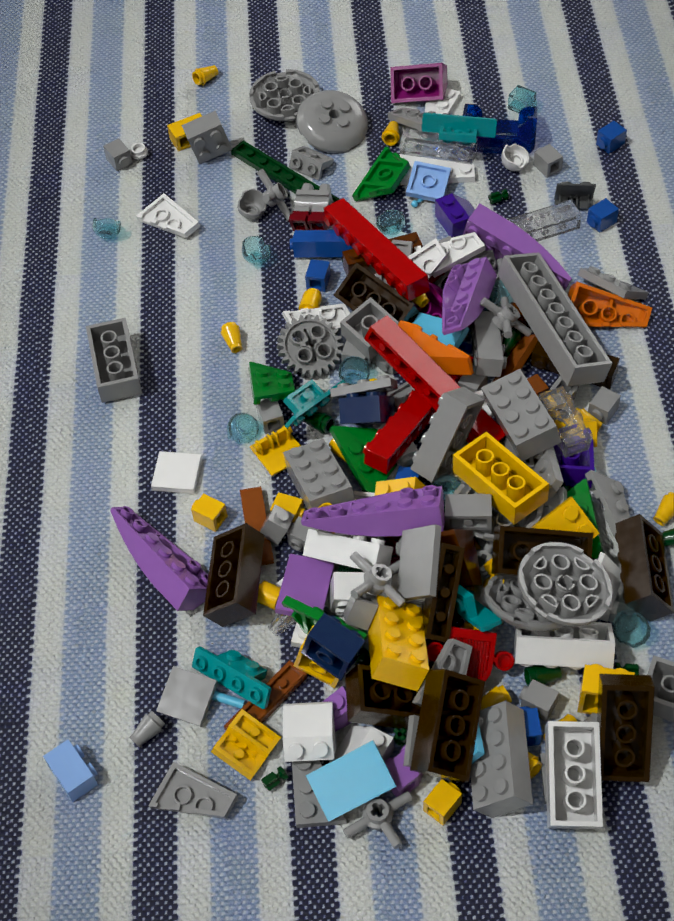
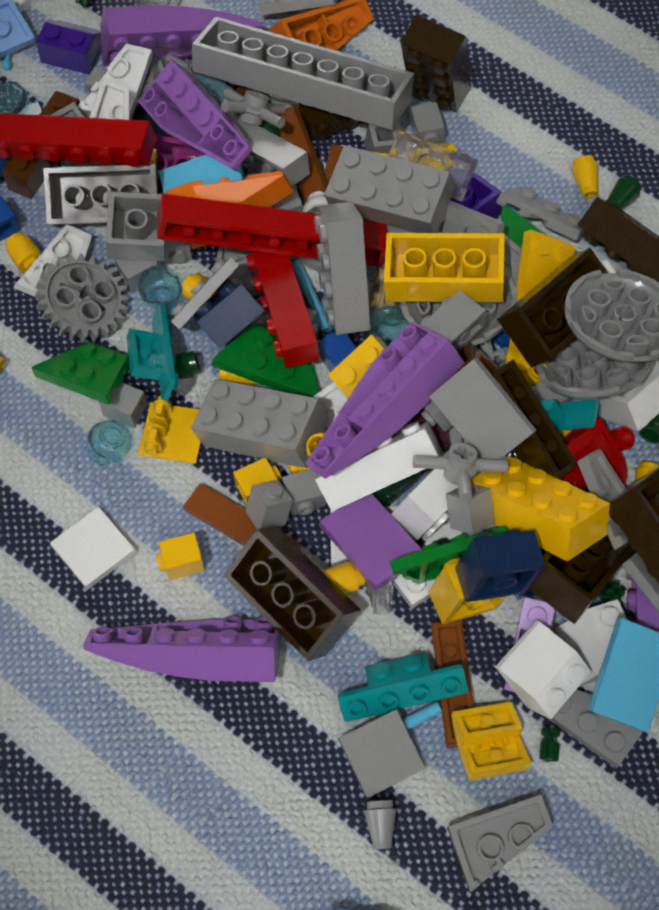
camera: 50 degrees left, 10 degrees up
(633, 370) = (438, 63): none -> dark brown brick

